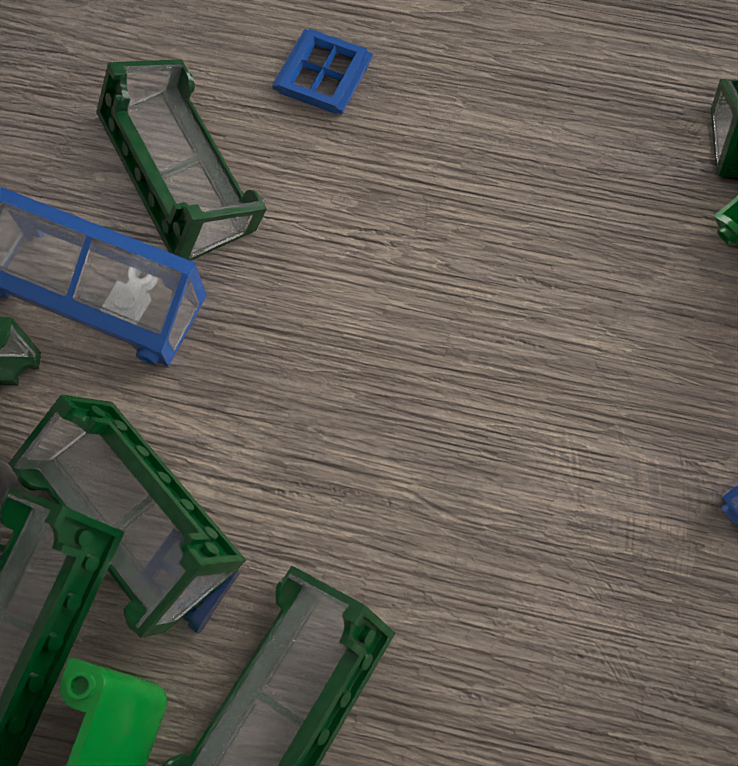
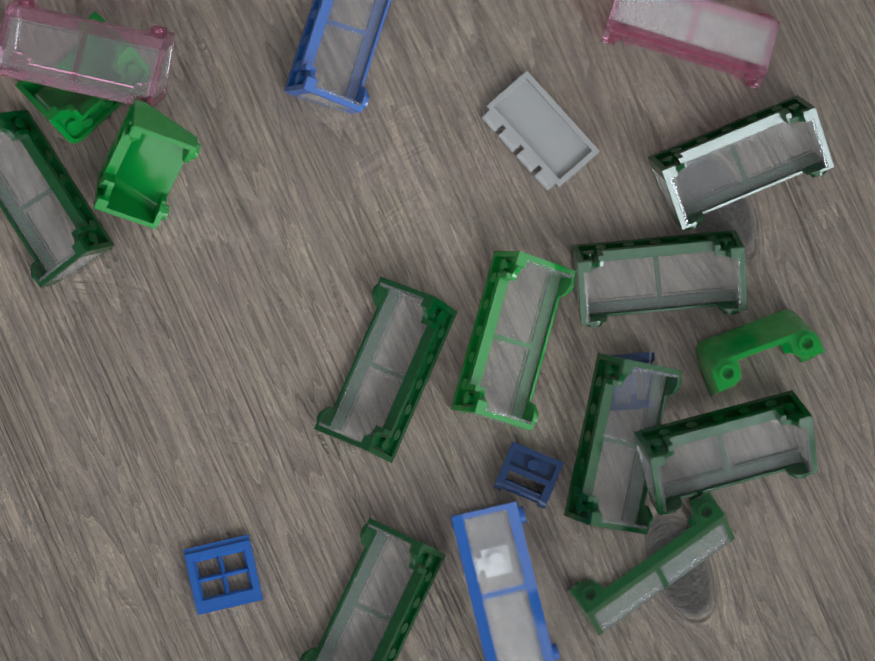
camera: 125 degrees left, 15 degrees up
(185, 404) = (532, 466): none -> dark blue plate
(336, 480) = (511, 338): none -> windscreen
(400, 332) = (389, 370): none -> windscreen
(561, 702) = (541, 130): none -> light grey hinge

